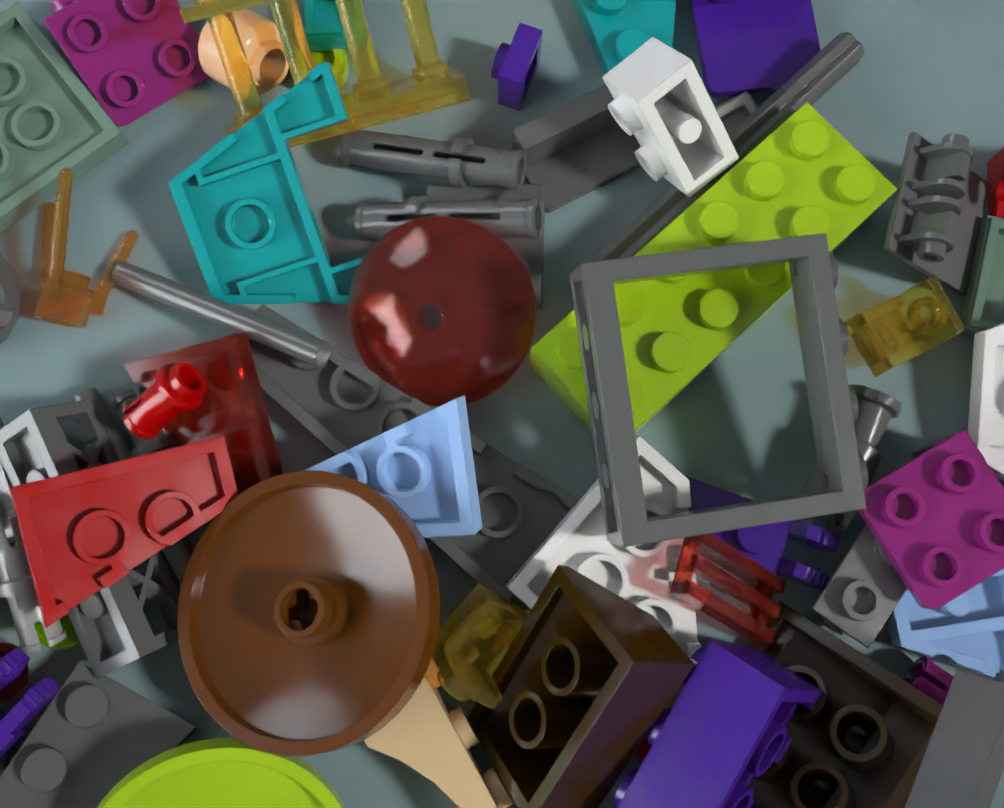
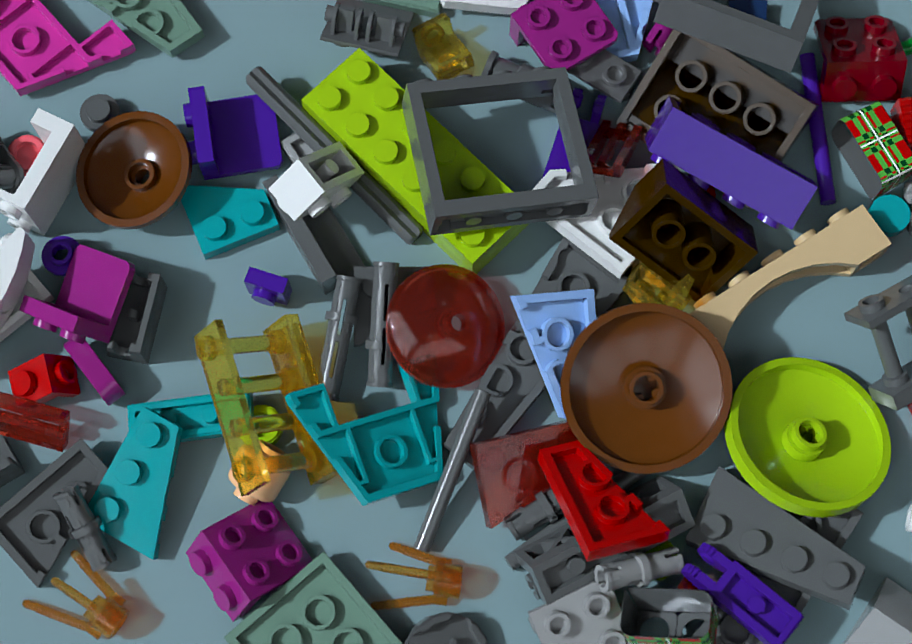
camera: 90 degrees left, 5 degrees down
(176, 390) = (517, 488): red pin -> none

